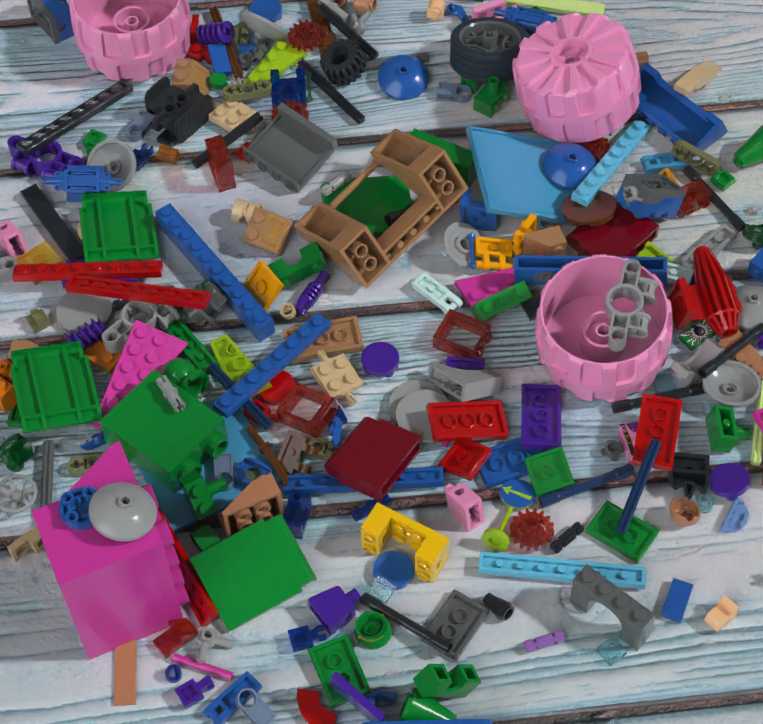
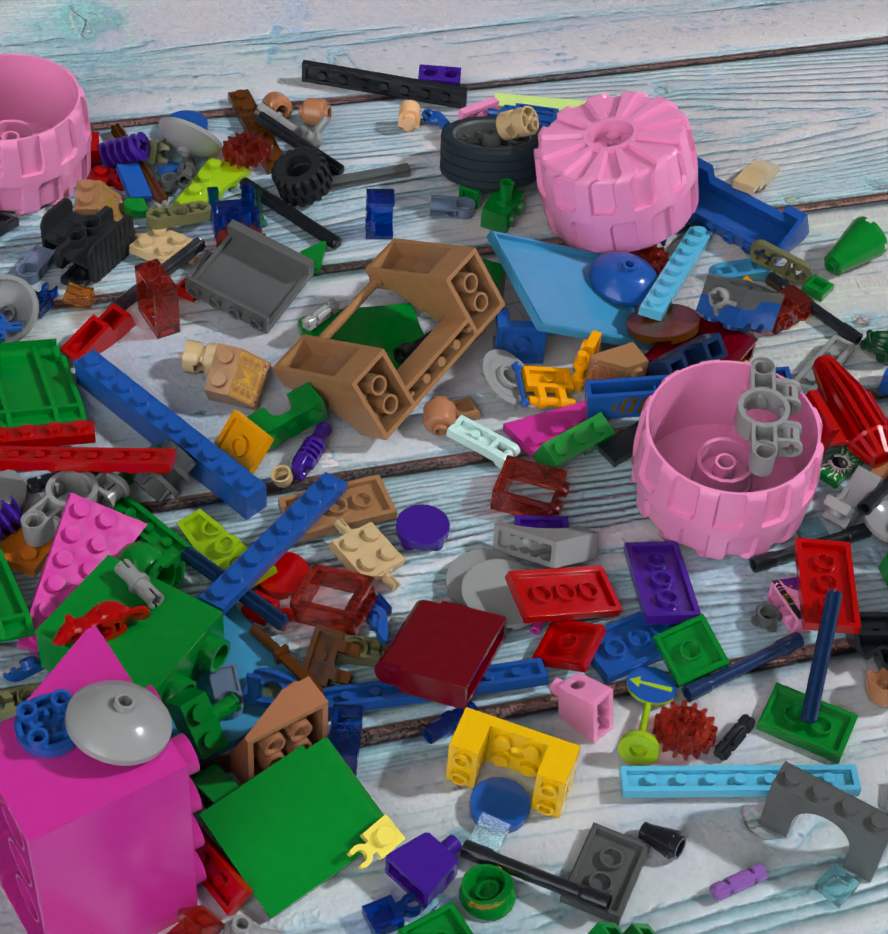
camera: 15 degrees left, 10 degrees down
(144, 418) = (108, 617): none -> red animal
(176, 187) = (99, 332): none -> red slope
(305, 587) = (379, 840): none -> light yellow plate
(342, 130) = (316, 253): none -> green tile
(395, 98) = (379, 213): none -> clear blue panel
(403, 84) = (383, 178): blue dish -> none
(408, 270) = (439, 415): none -> nougat head
(429, 266) = (467, 408): none -> medium nougat tile
(508, 30) = (517, 123): none -> tan wheel
(609, 235) = (699, 349): none -> dark blue arch

